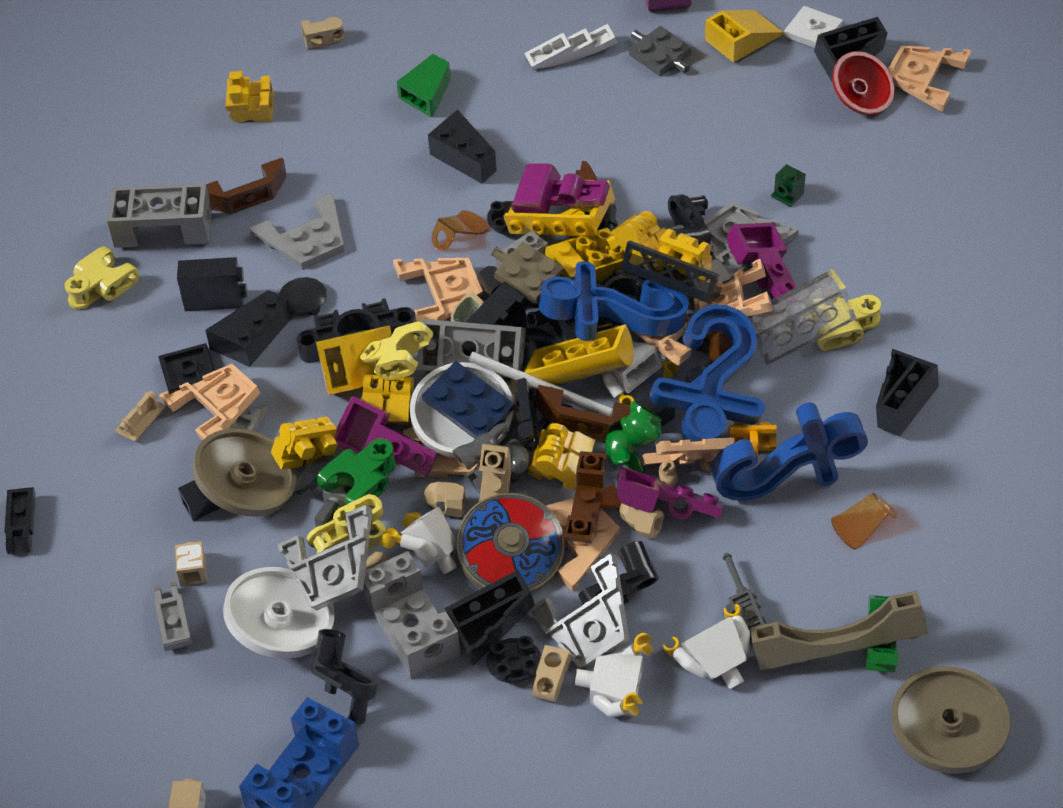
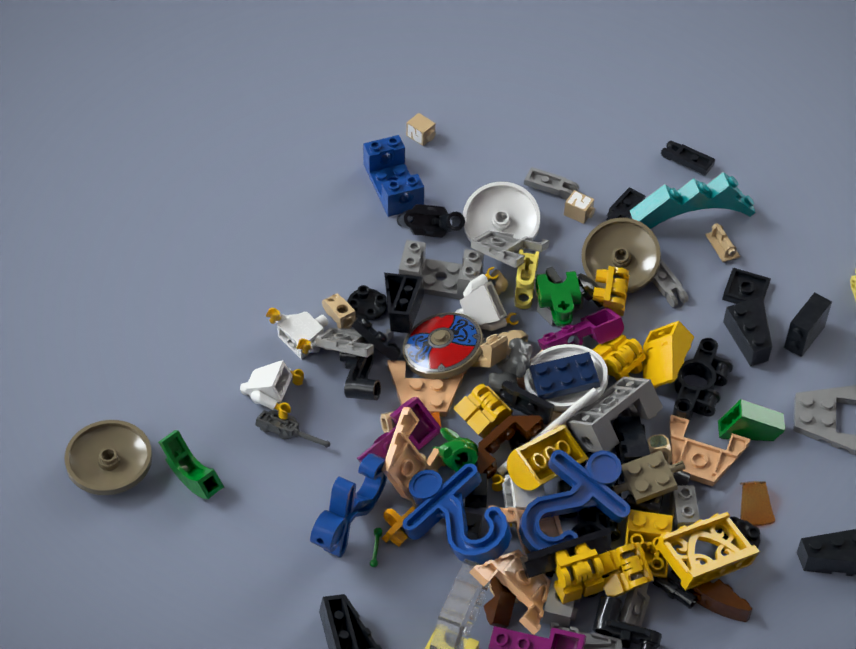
camera: 125 degrees right, 0 degrees up
(106, 445) = (693, 196): none -> teal arch
(155, 527) = (624, 204): none -> black hinge
(222, 392) = (695, 282): light nougat wing -> none
(304, 295) = (763, 379): black dish -> none
(375, 267) = (751, 422): none -> green slope
(394, 355) = (638, 357): light yellow piece -> none
(542, 188) = (719, 536): magenta plate -> none
(564, 600) = (364, 328): none -> black hinge
(588, 496) = (413, 376): reddish brown slope -> none
(862, 520) = (278, 535): clear orange piece -> none
(894, 620) = (211, 440): dark tan arch -> none

